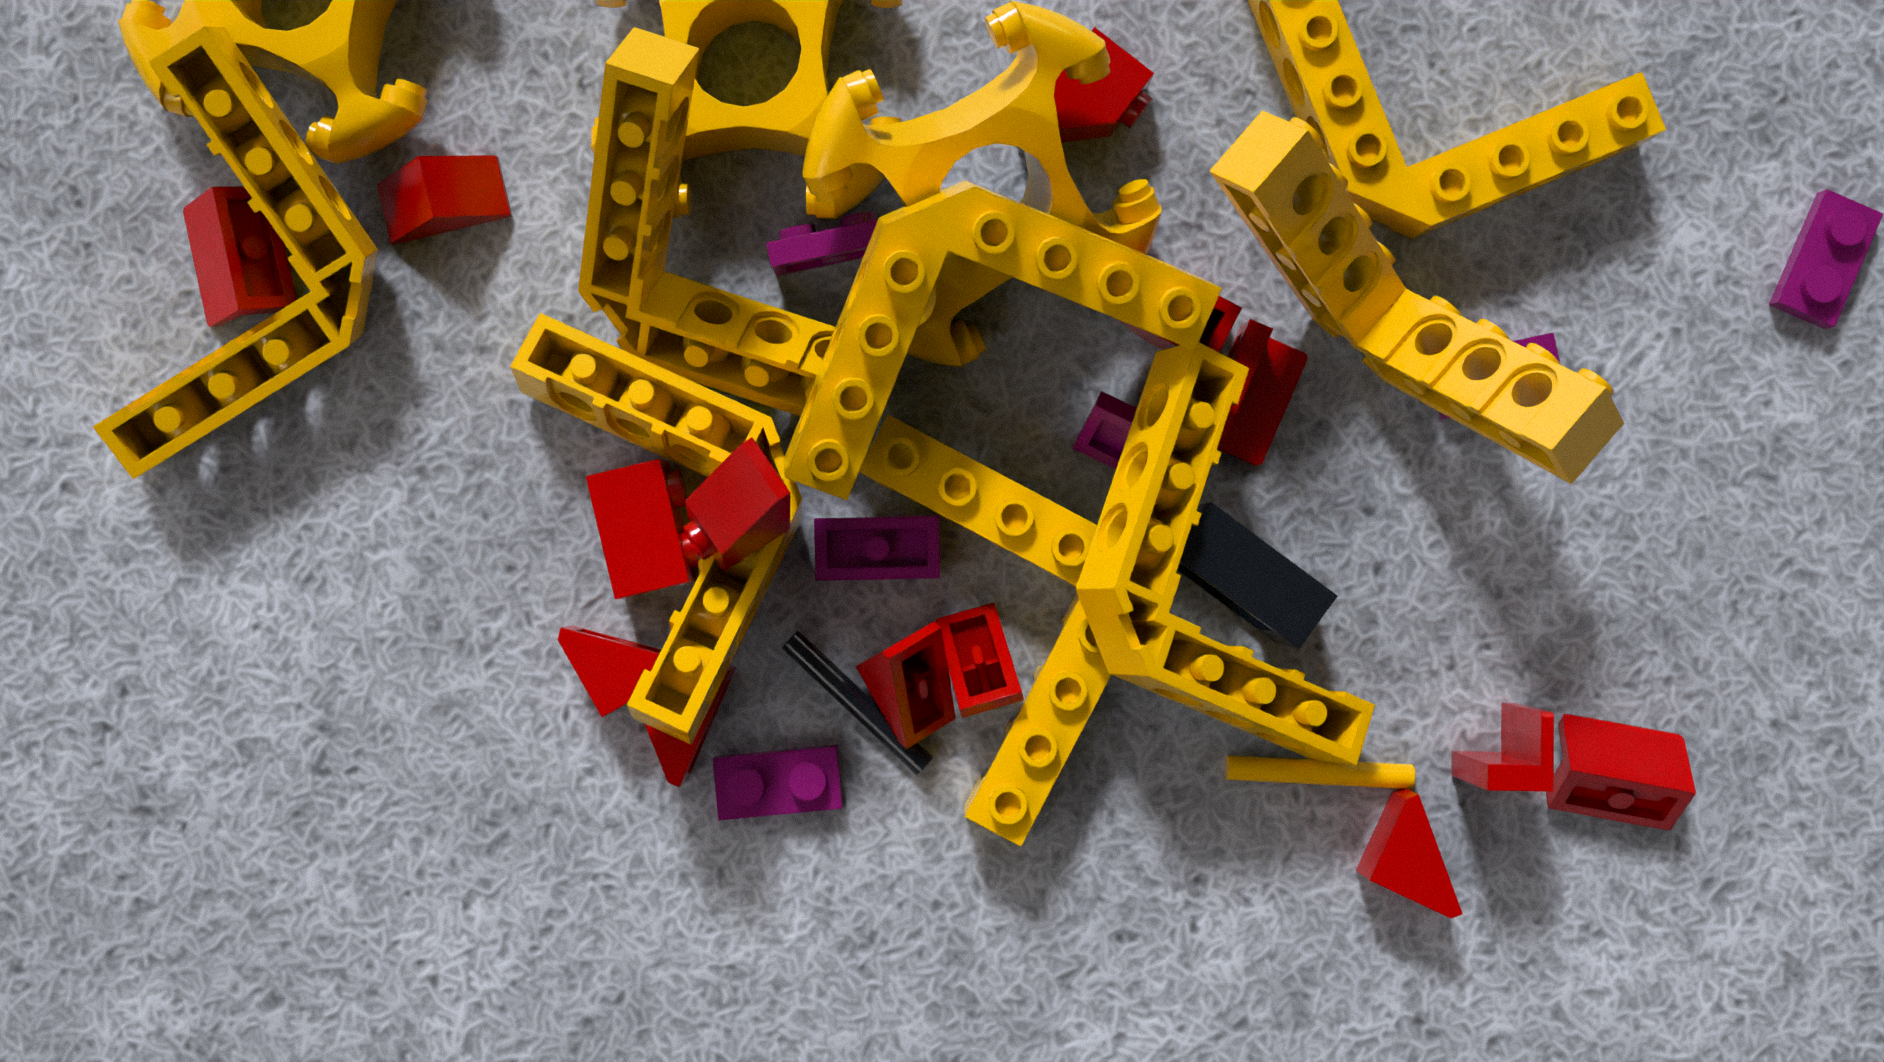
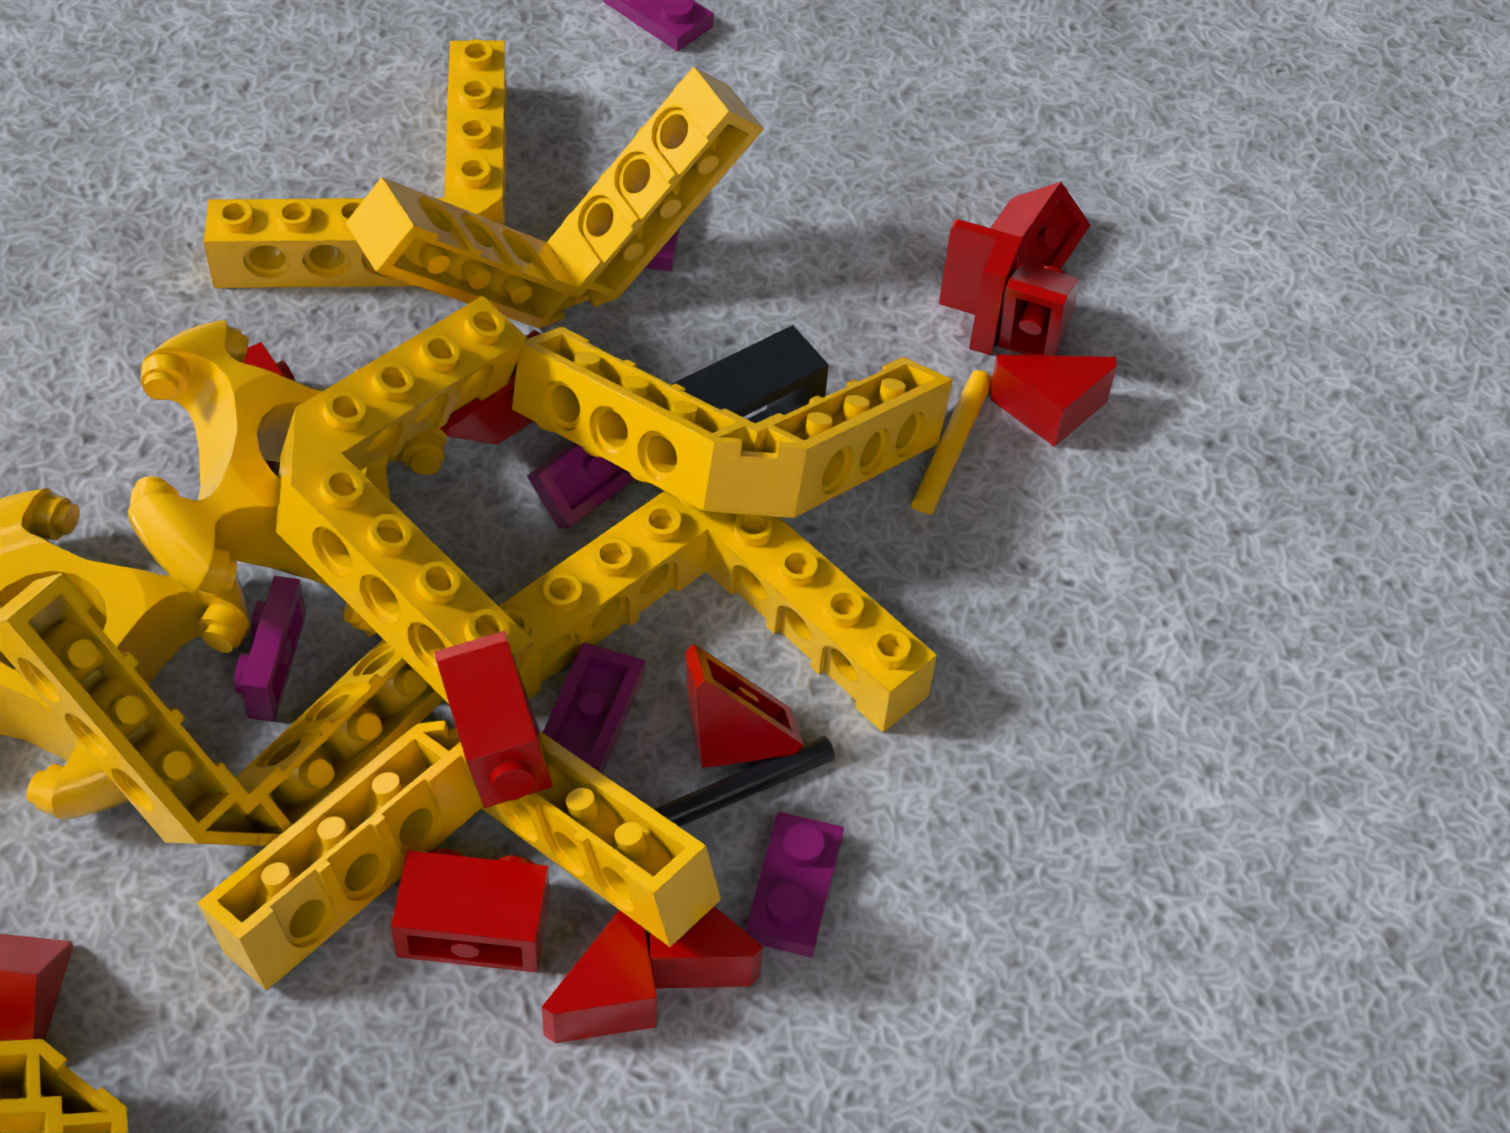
camera: 75 degrees left, 35 degrees down
(979, 660) = (754, 645): red slope -> none
(1510, 823) = (1037, 309): none -> red slope

